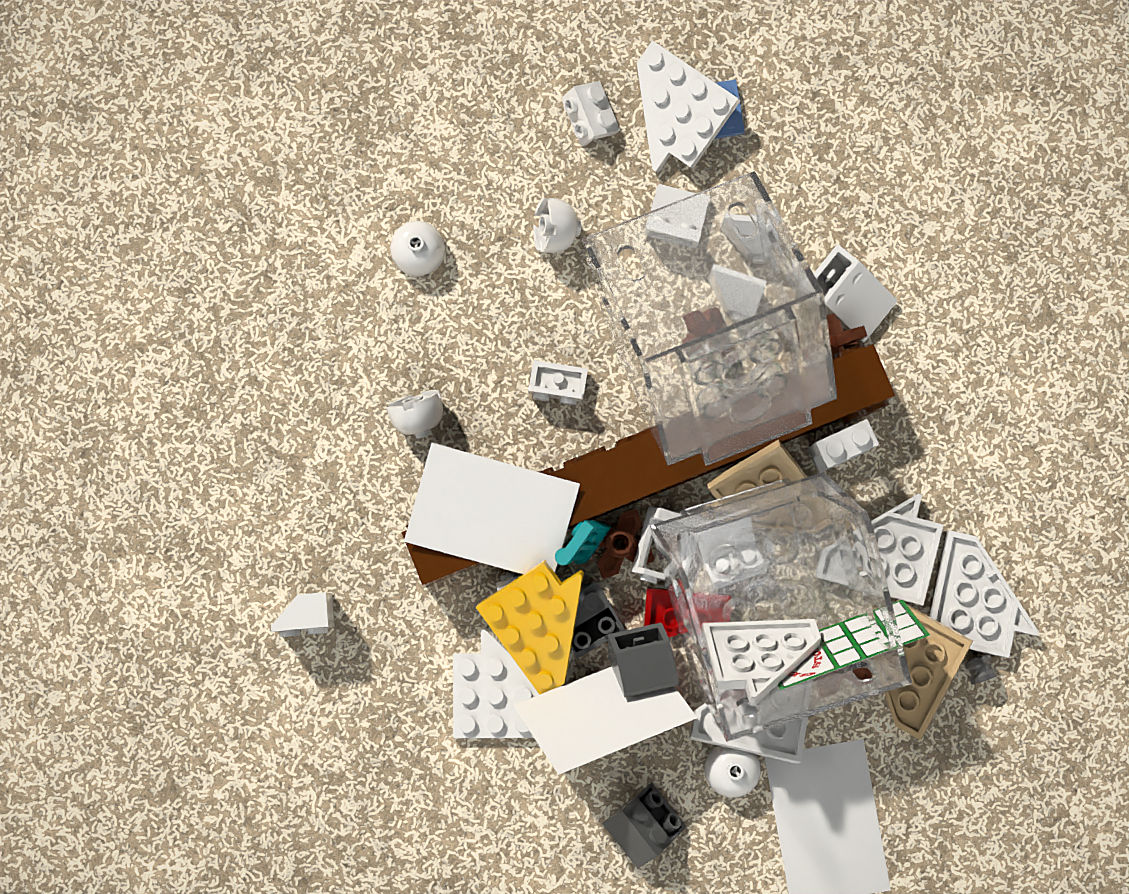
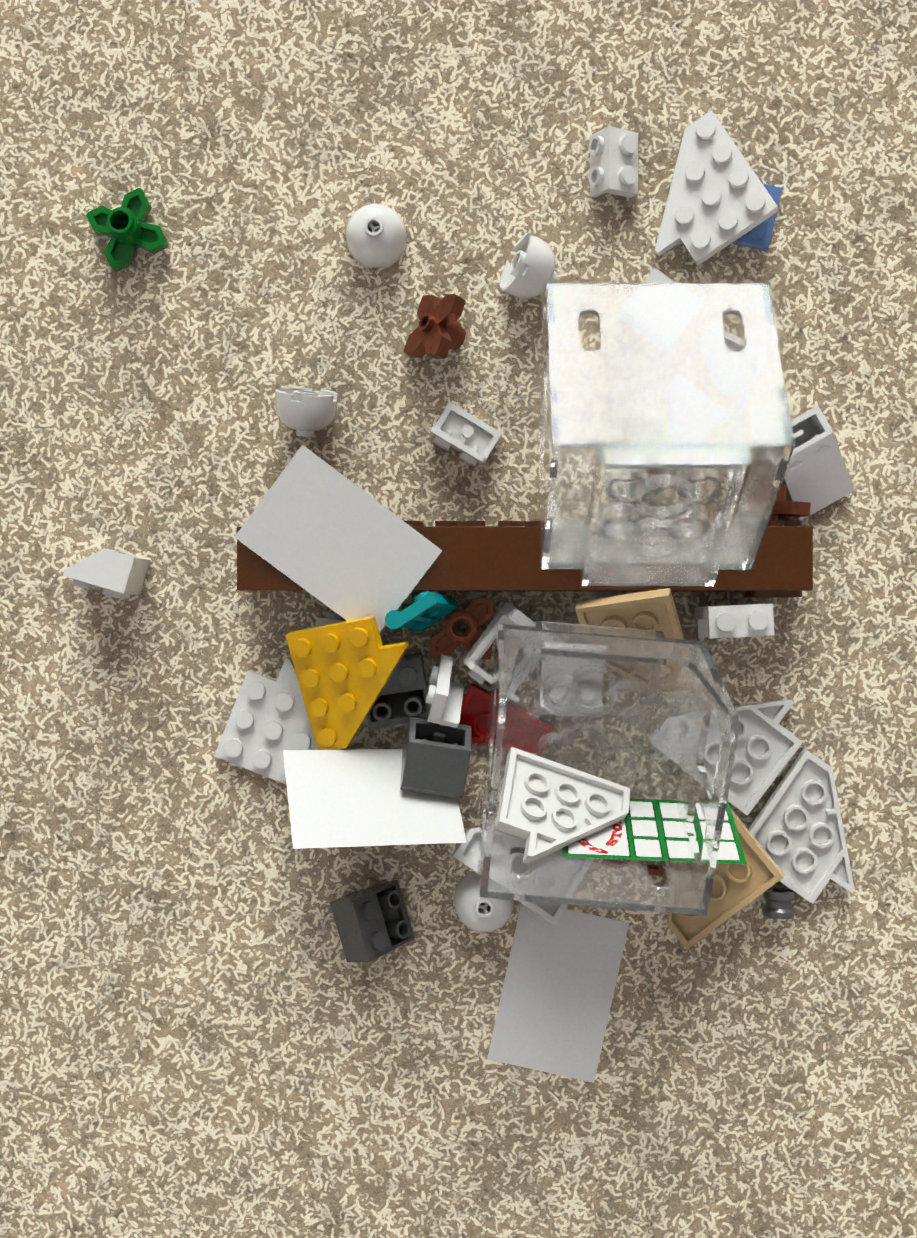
camera: 25 degrees right, 5 degrees up
(207, 310) = (127, 229): none -> green plant
(500, 303) = (437, 327): none -> copper plant
(628, 606) = (444, 696): none -> white bracket

